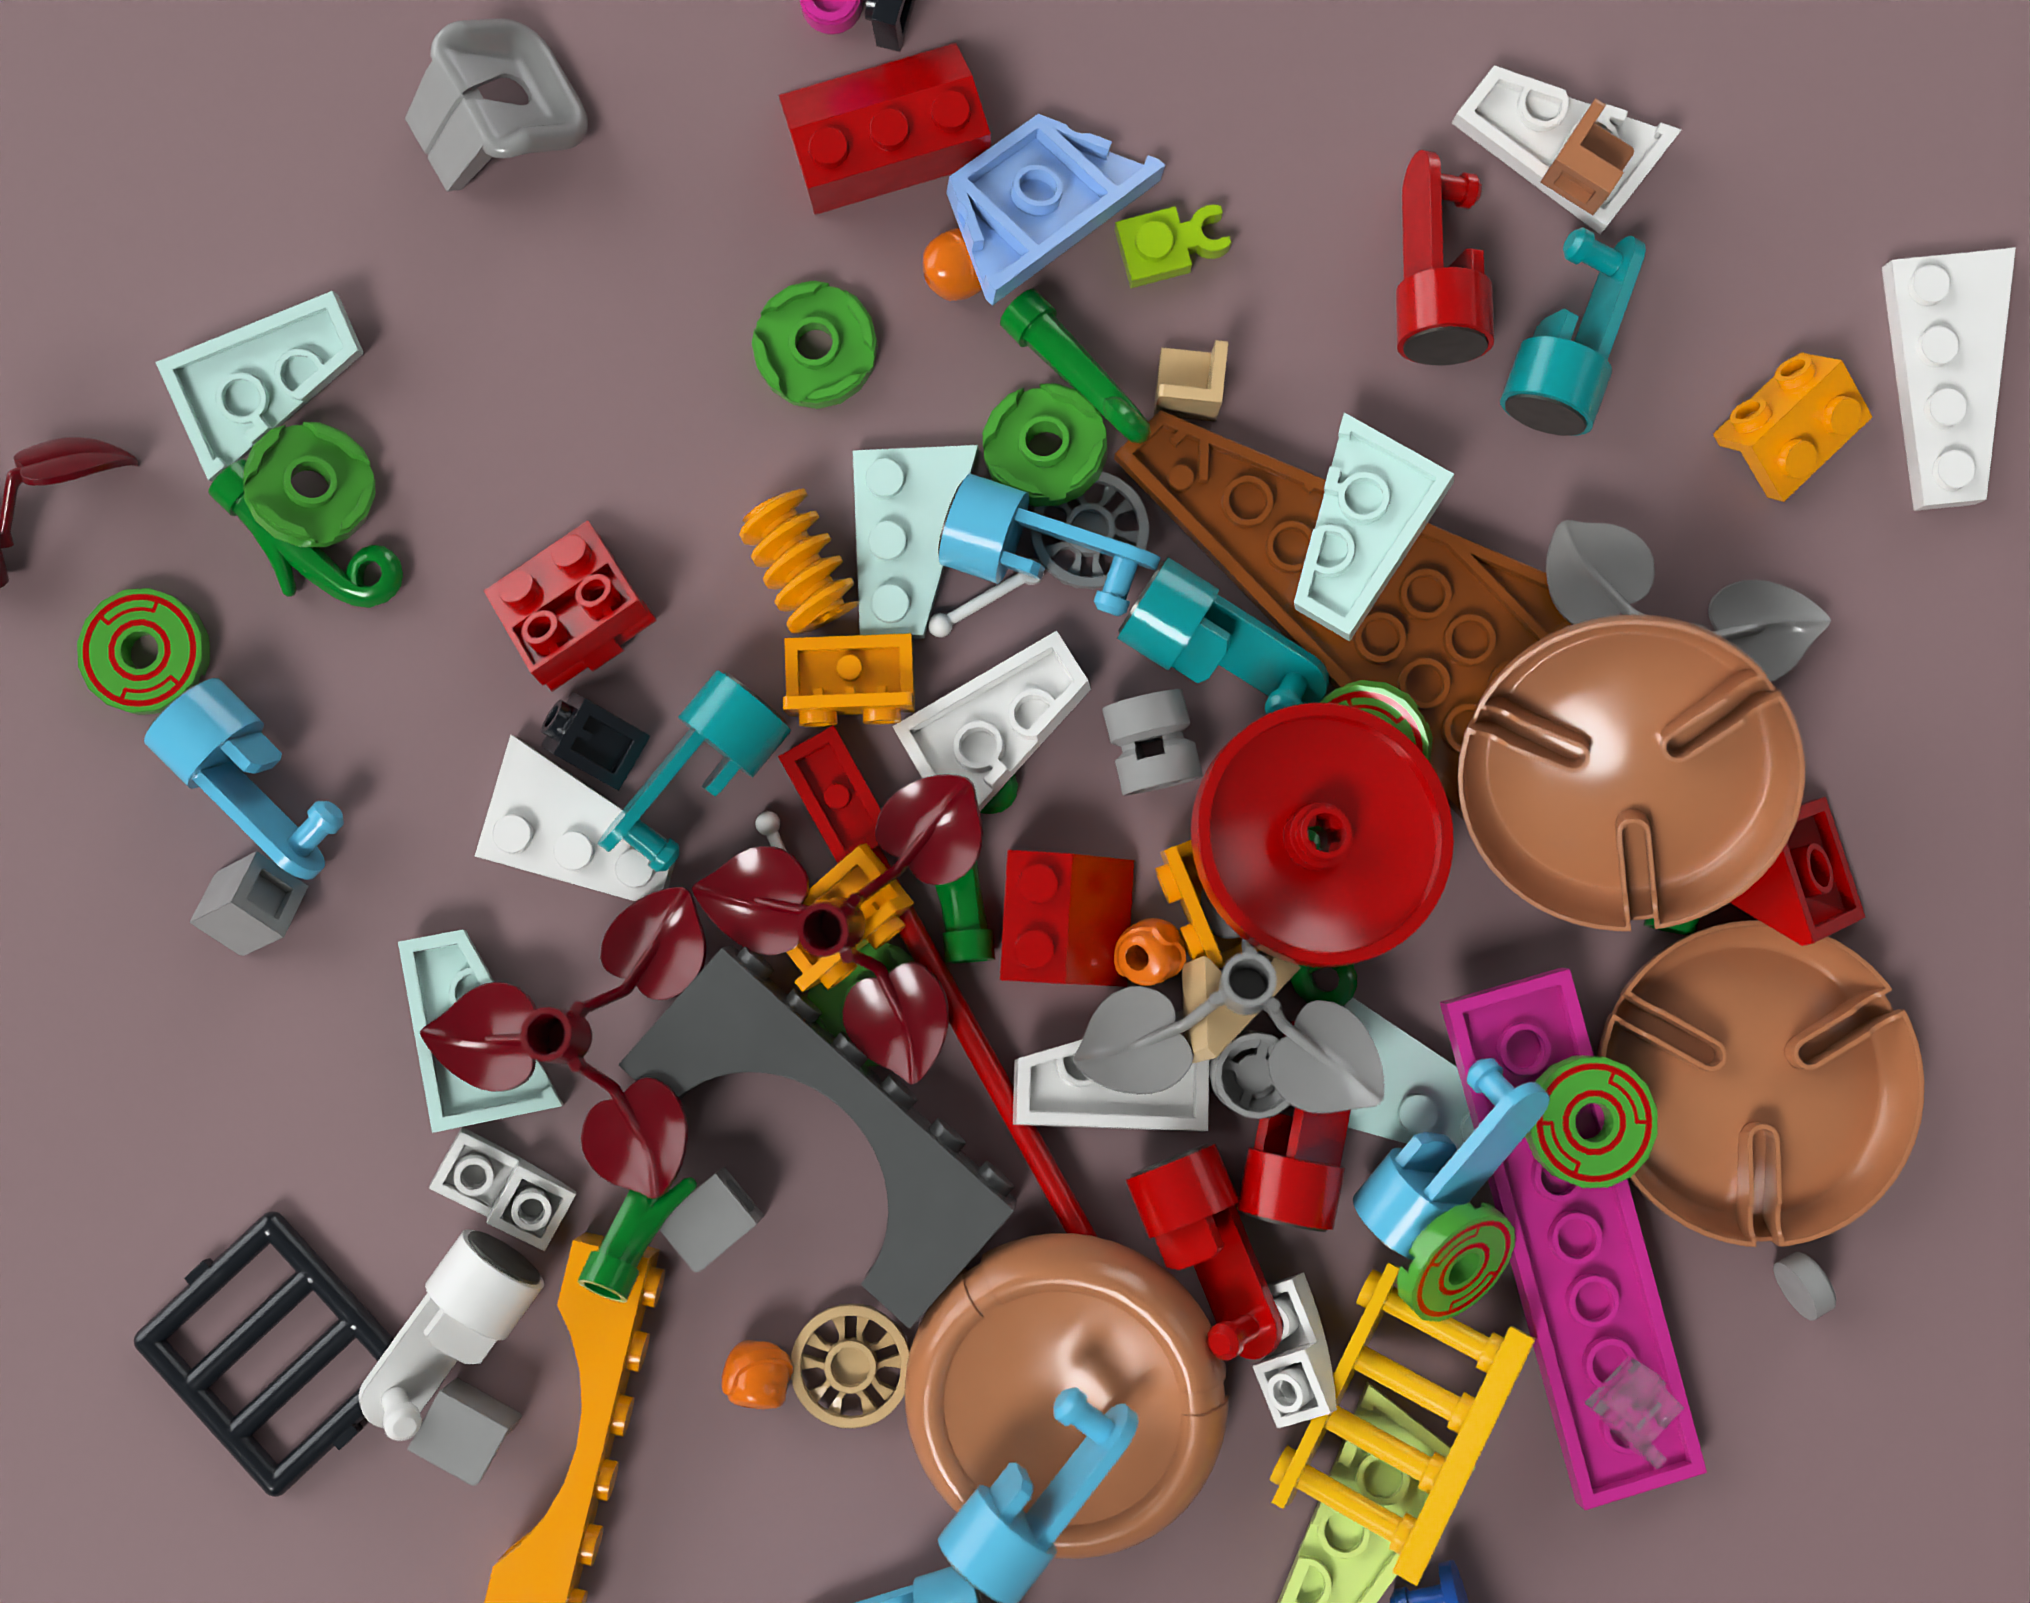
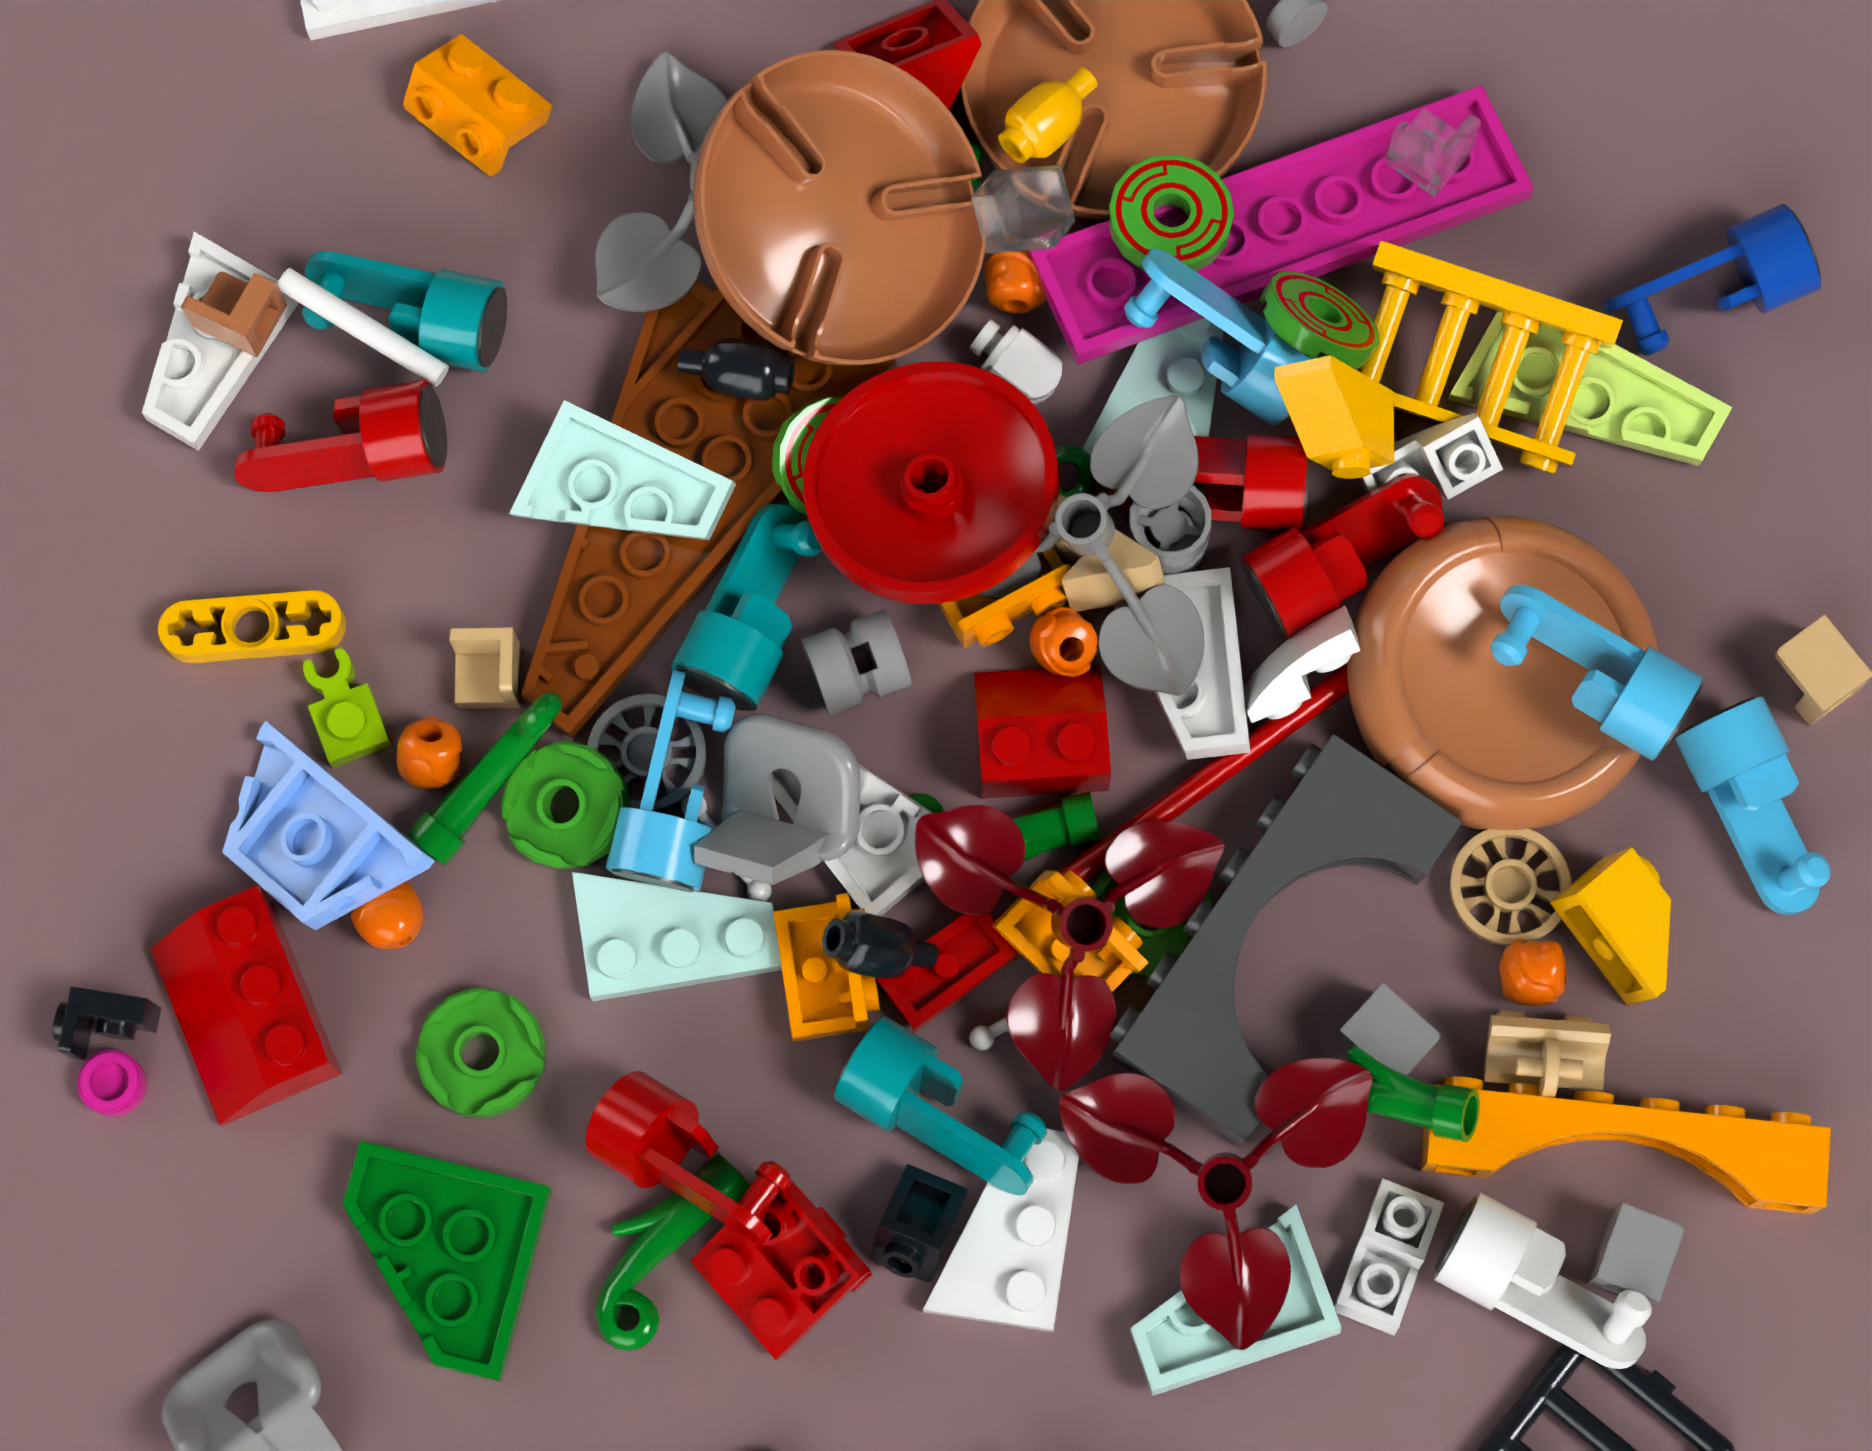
camera: 95 degrees left, 10 degrees down
(624, 502) = (663, 1231): none -> green plant
(627, 296) = (450, 1249): none -> green plate
(670, 1376) = (1546, 1052): none -> tan hips
(705, 484) = (645, 1135): none -> red piece
(794, 1474) = (1622, 923): none -> yellow slope
(796, 562) = (711, 1033): light orange piece -> none
(851, 724) = (876, 946): none -> black plant
(977, 620) = (750, 833): none -> light grey piece
(1082, 1166) = (1282, 680): none -> white slope
(1111, 317) = (429, 753): none -> orange piece
(1248, 117) = (206, 644): none -> yellow beam
(1344, 1267) = (1339, 415): none -> yellow slope
(1452, 944) = (1019, 360): none -> white arm
(1470, 657) = (741, 368): none -> black plant
(1541, 949) = (1013, 282): none -> orange piece
(1557, 282) = (362, 327): none -> white bar
(1613, 968) = (1023, 209): none -> clear panel
(1713, 1004) = (1045, 117): none -> yellow plant

